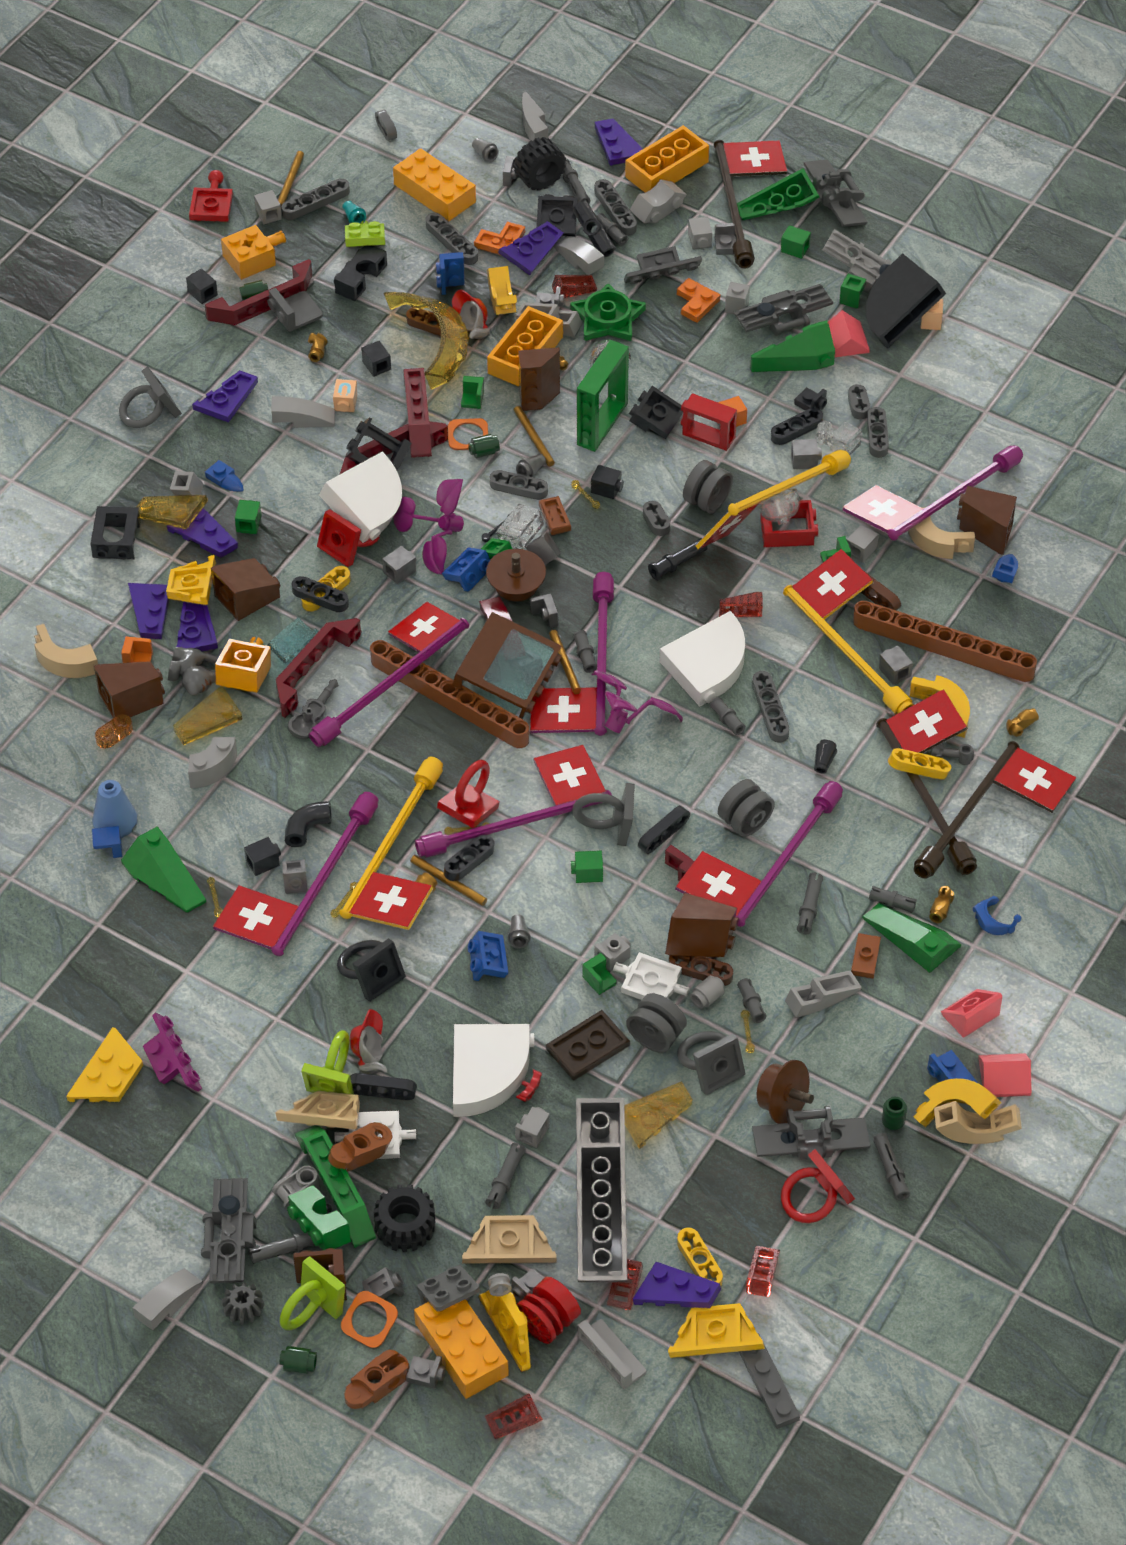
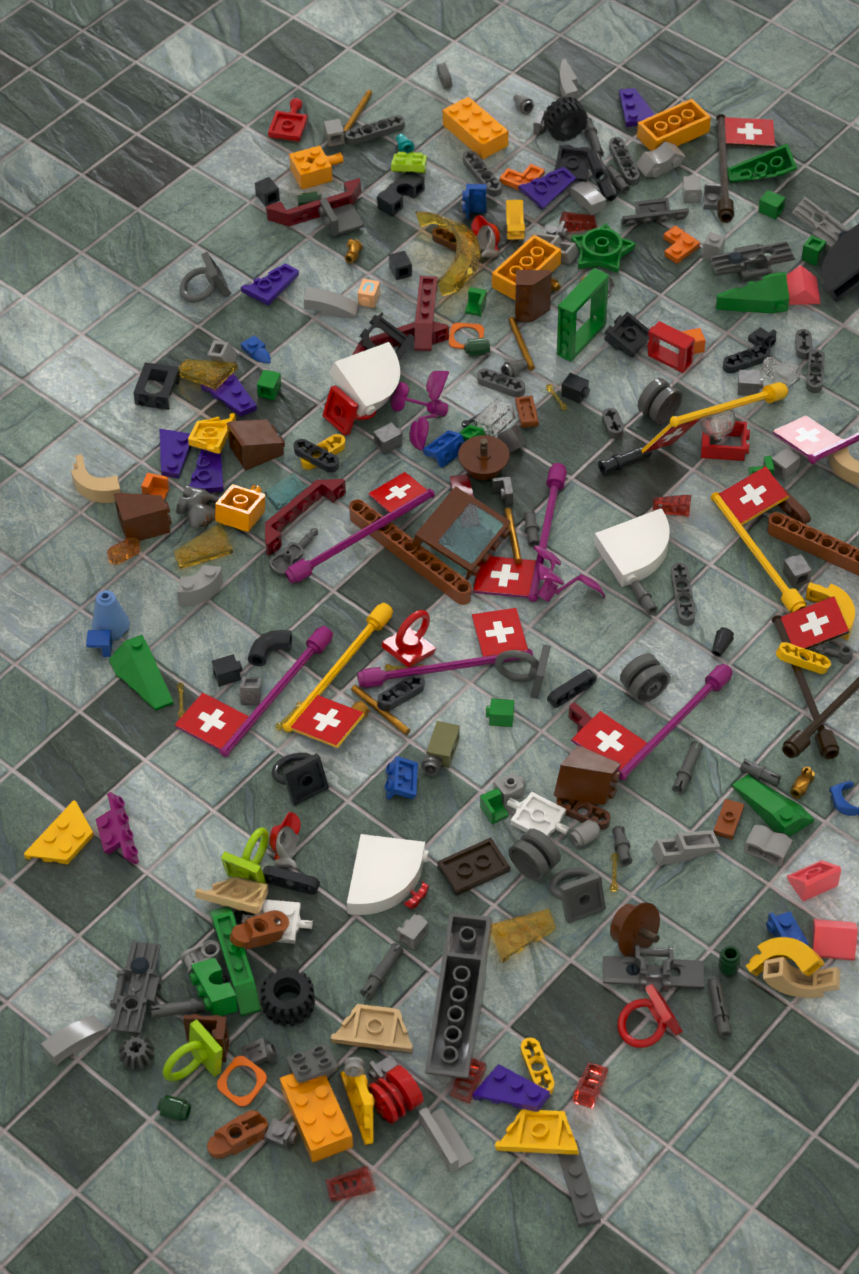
camera: 10 degrees right, 0 degrees up
(529, 908) = (444, 742): none -> olive panel
(827, 185) = (806, 161): dark grey piece -> none
(915, 979) = (768, 845): none -> light grey brick

